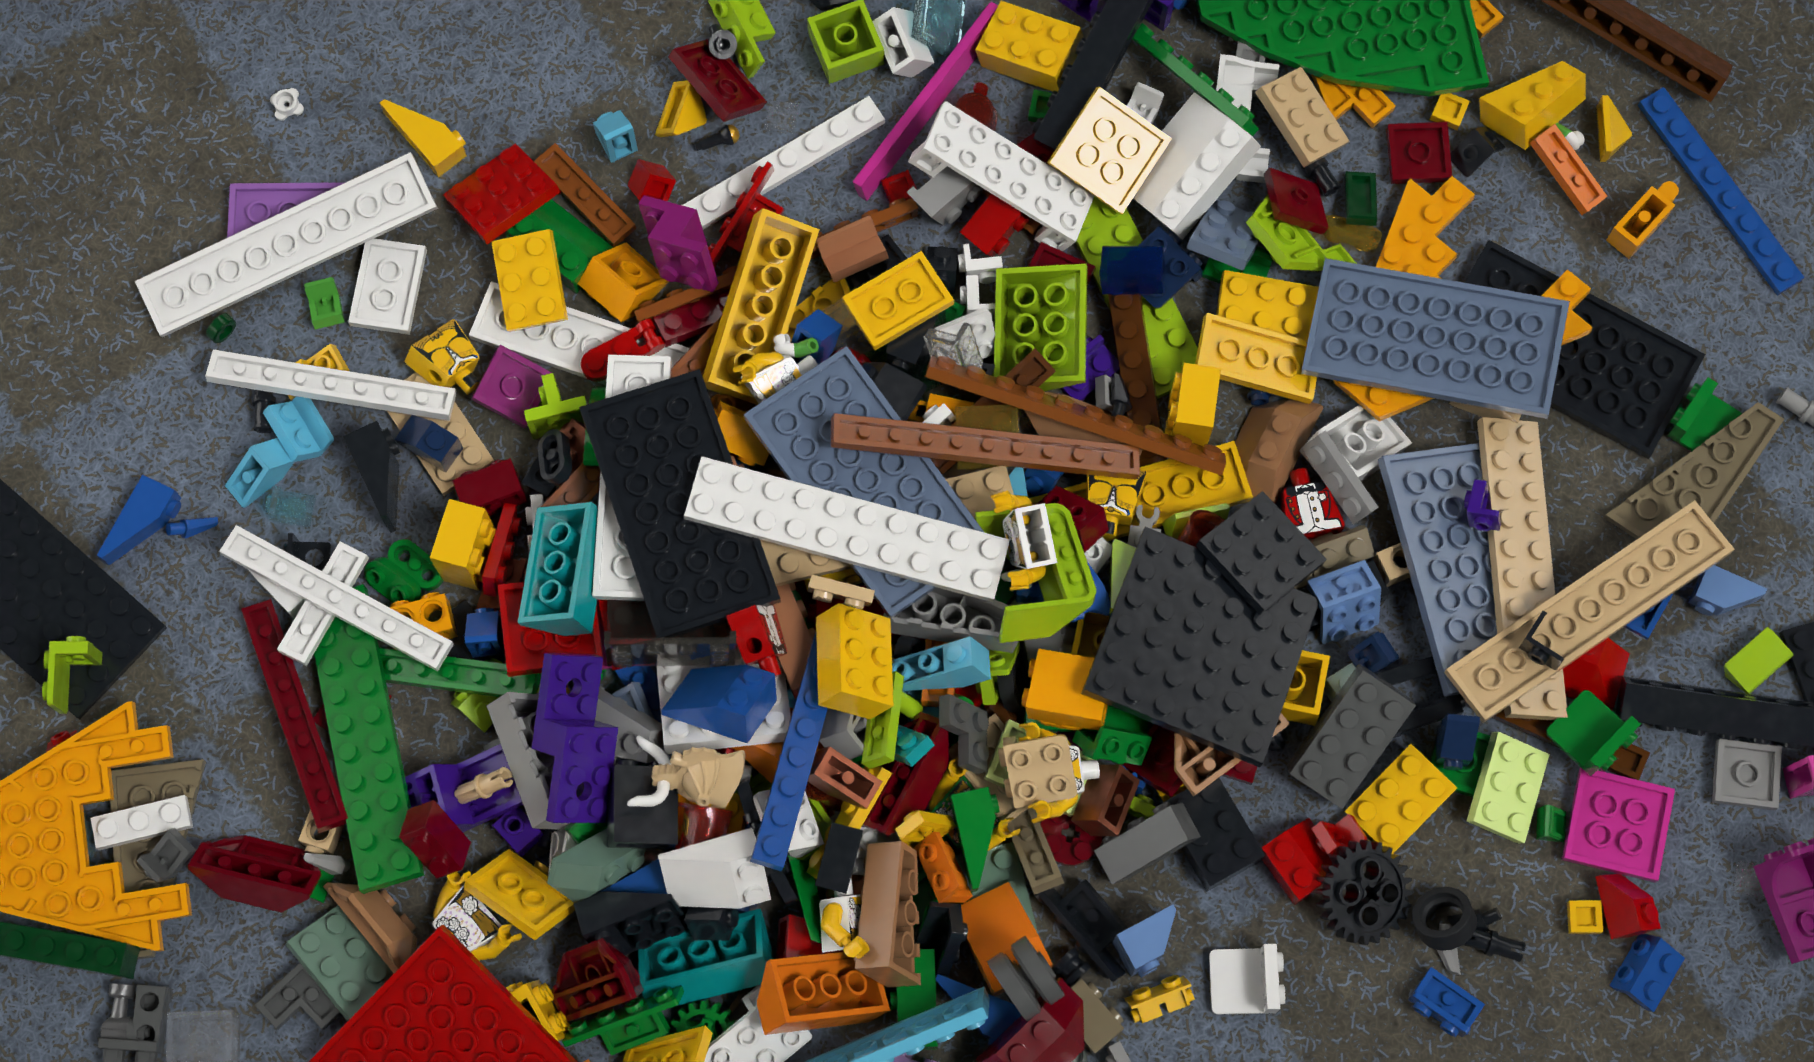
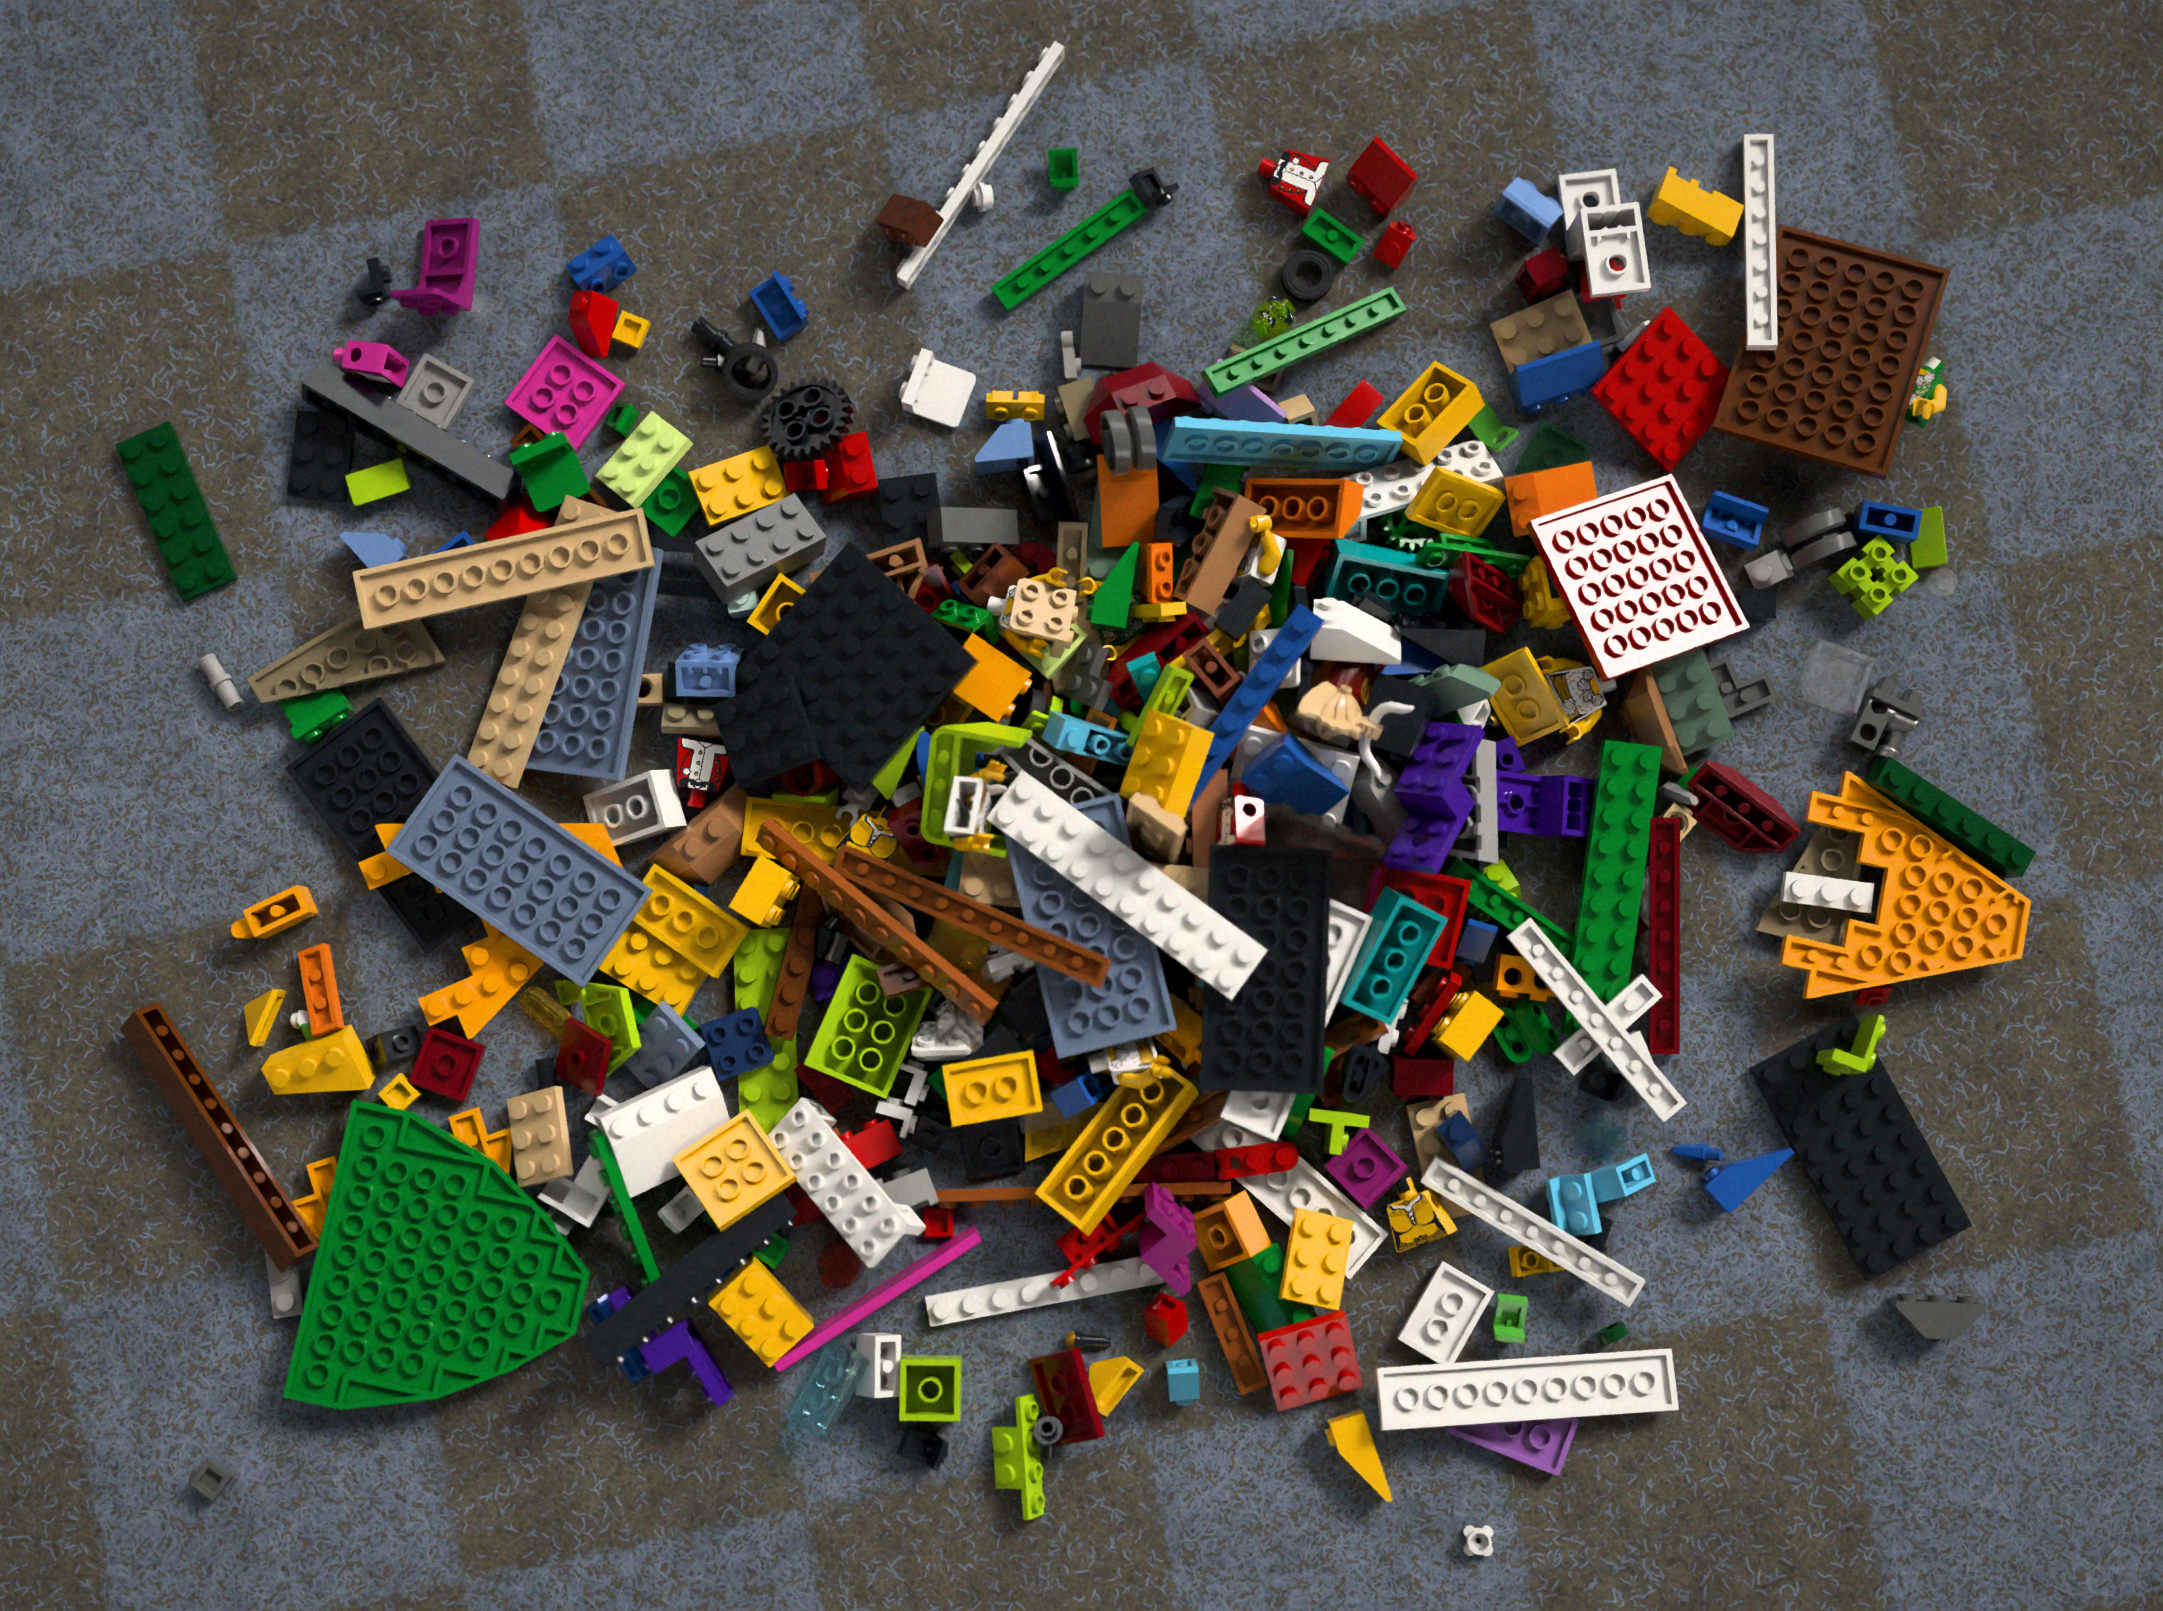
camera: 160 degrees left, 10 degrees up
(167, 856) = (1816, 850): dark grey bracket -> none
(435, 839) = (1583, 764): dark red brick -> none
(483, 785) = (1523, 798): tan axle -> none
(796, 350) = (1101, 1084): arm -> none
(851, 249) = (1008, 1172): nougat panel -> none
(1132, 270) = (764, 1042): clear blue brick -> none
(1339, 477) = (664, 779): light grey plate -> none
(1360, 198) = (522, 1040): dark green tile -> none
(1373, 653) = (705, 614): dark blue bracket -> none
(1456, 741) = (672, 508): dark blue slope -> none
(1476, 504) = (555, 708): dark purple bracket -> none
(1538, 652) = (570, 544): black bracket -> none
(1720, 191) = (192, 918): blue plate -> none

